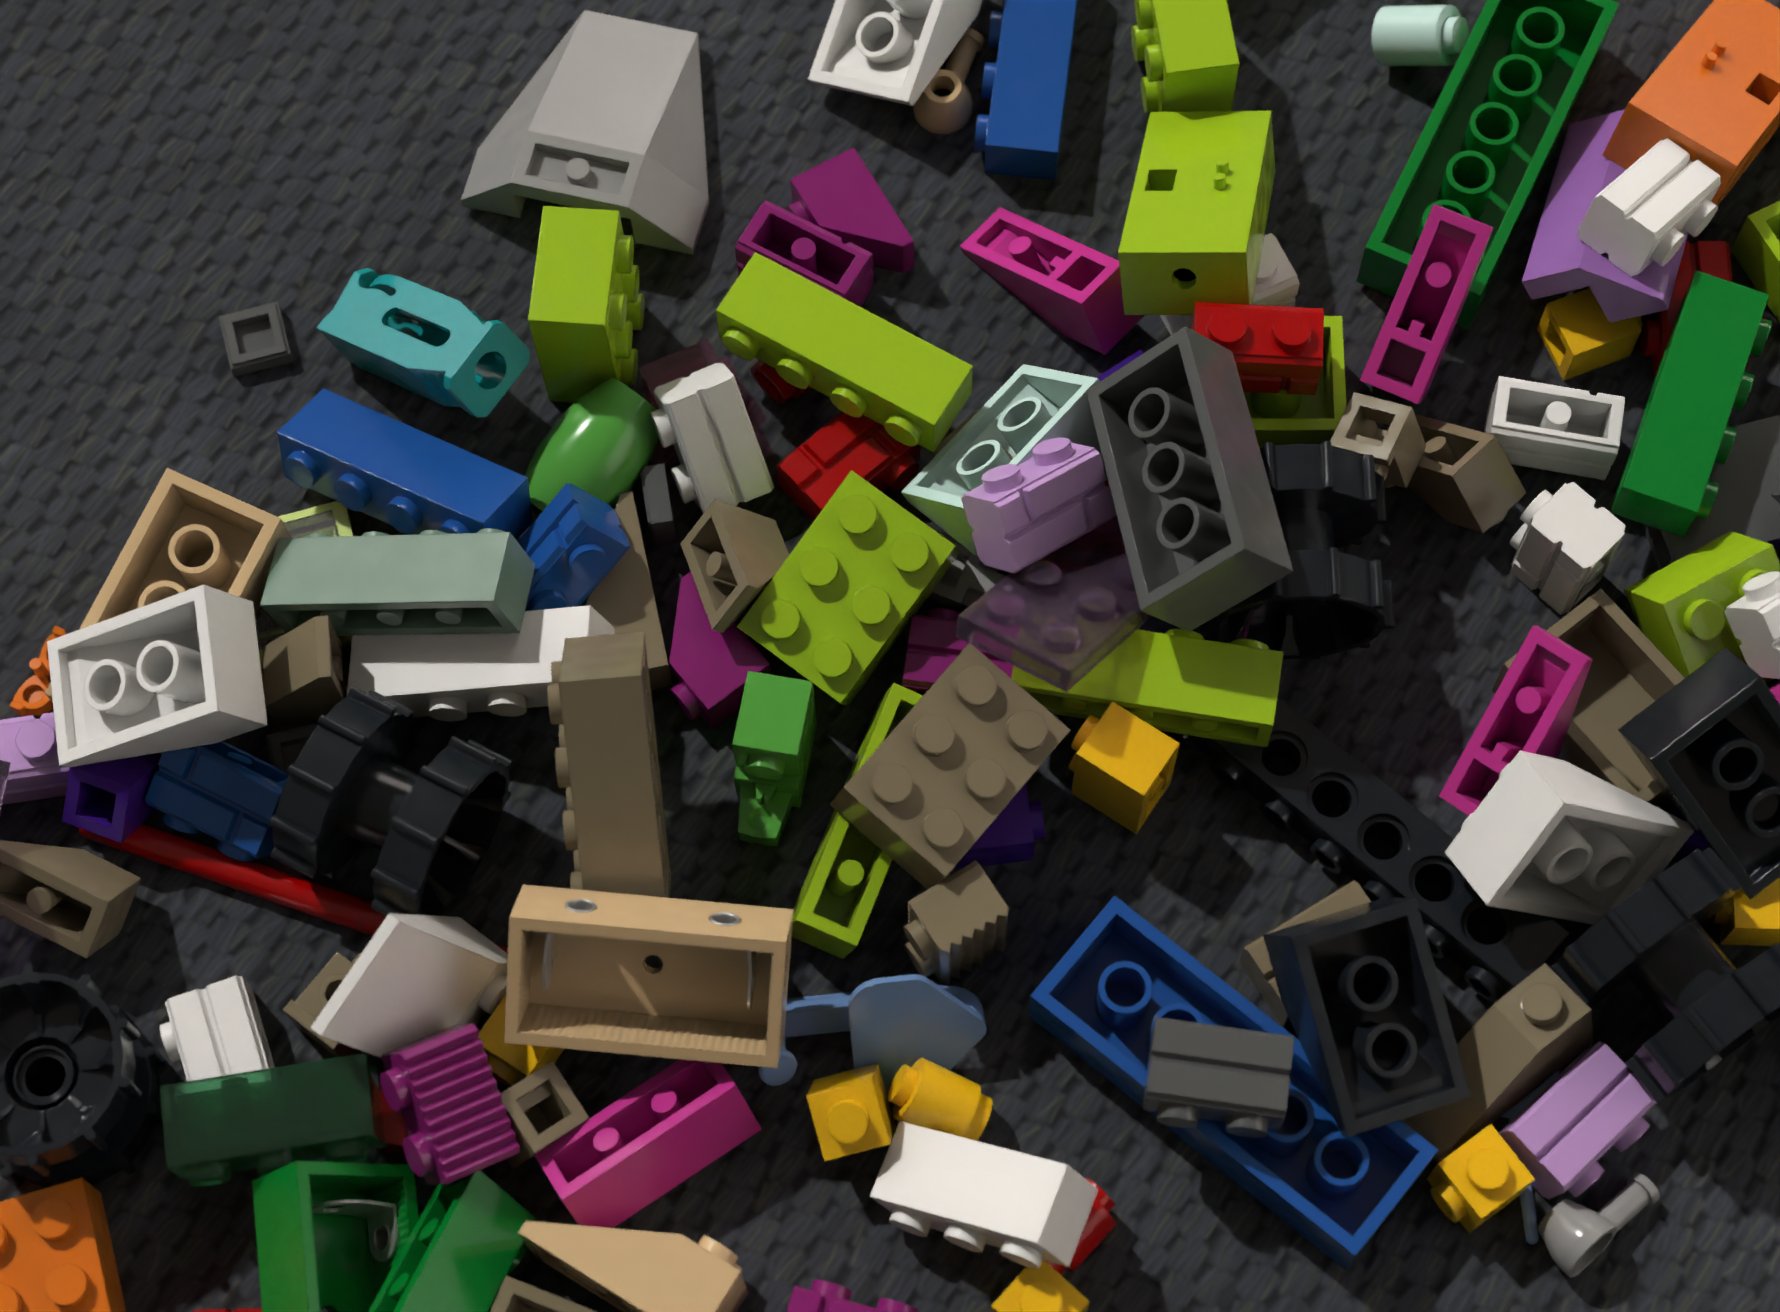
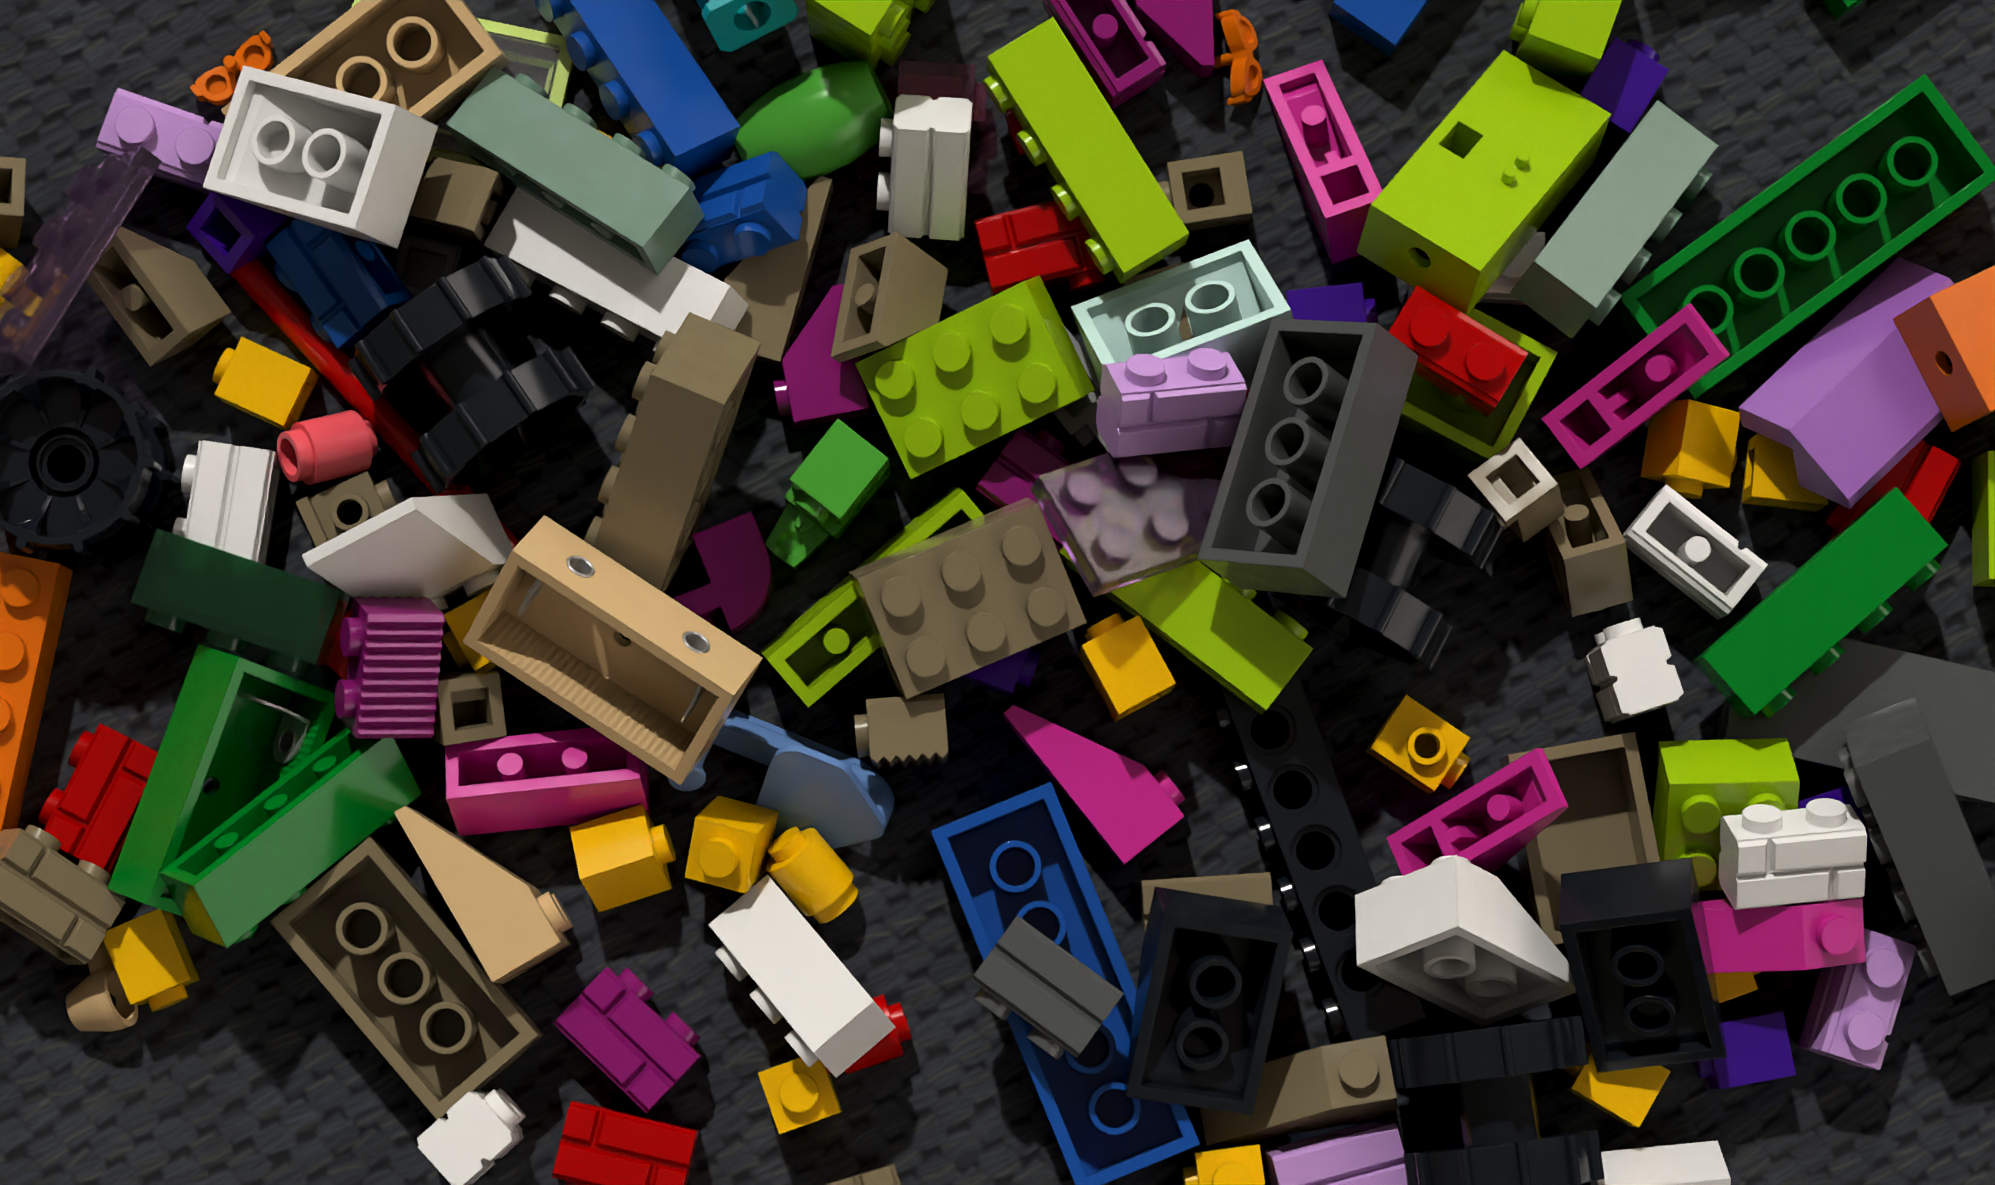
camera: 20 degrees right, 15 degrees up
(203, 926) = (263, 383): none -> yellow brick
(288, 951) = (327, 448): none -> coral brick
(658, 505) = (852, 197): dark grey tile -> none
(720, 862) = (737, 572): none -> magenta brick
(756, 1177) = (622, 857): none -> yellow brick
(940, 244) = (1245, 70): none -> orange piece
(977, 336) = (1225, 179): none -> dark tan brick
(1173, 887) = (1108, 790): none -> dark pink slope
(1268, 85) = (1624, 84): none -> dark purple brick
(1328, 193) = (1615, 219): none -> sand green brick
(1418, 35) = (1804, 98): light aqua brick -> none
(1418, 709) = (1420, 746): none -> yellow brick
(1493, 341) = (1691, 447): none -> yellow brick
(1650, 208) = (1889, 406): white brick -> none

